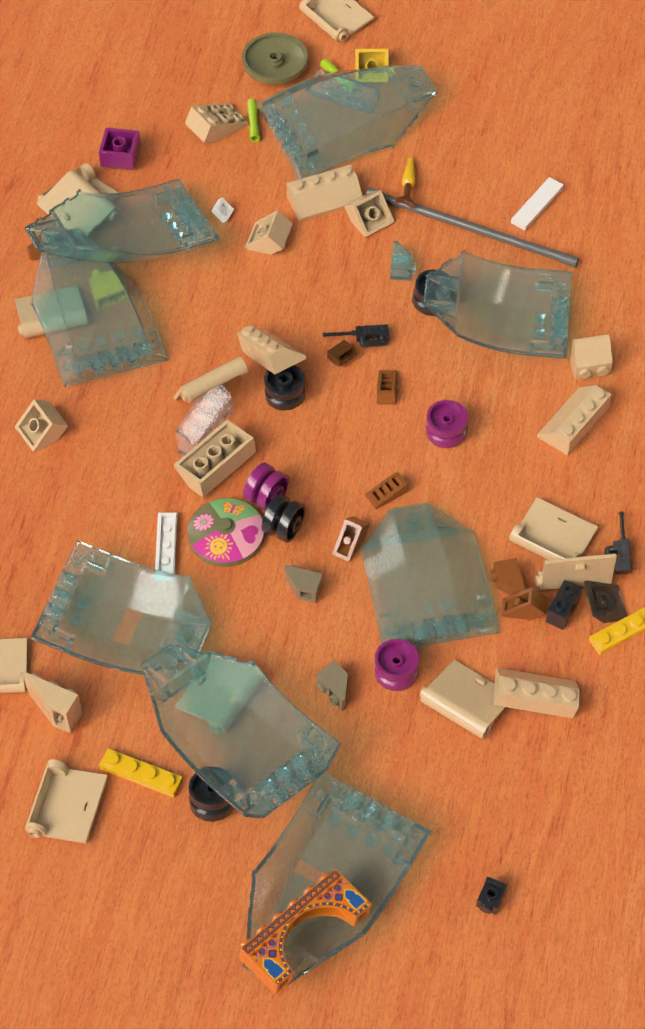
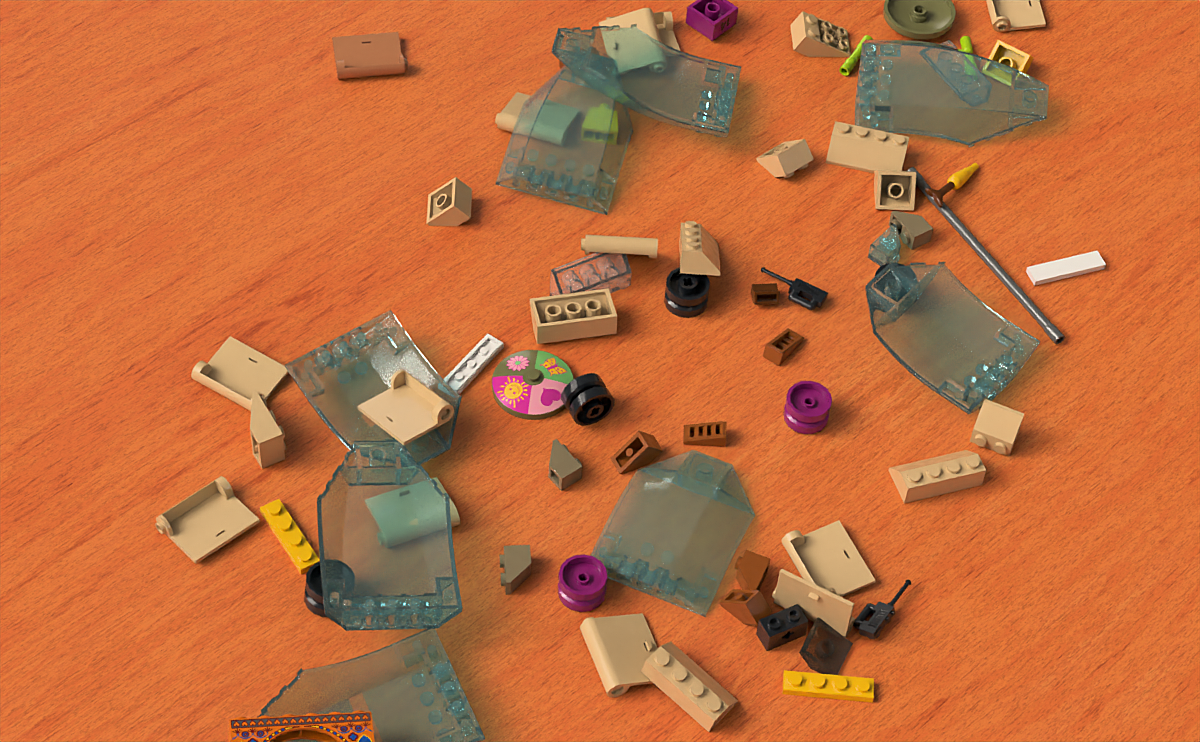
camera: 30 degrees right, 5 degrees down
(156, 612) = (407, 408): none -> tan door
(222, 210) = (761, 115): white plate -> none
(265, 484) = (598, 358): magenta wheel -> none
(408, 235) = (911, 228): none -> dark tan slope

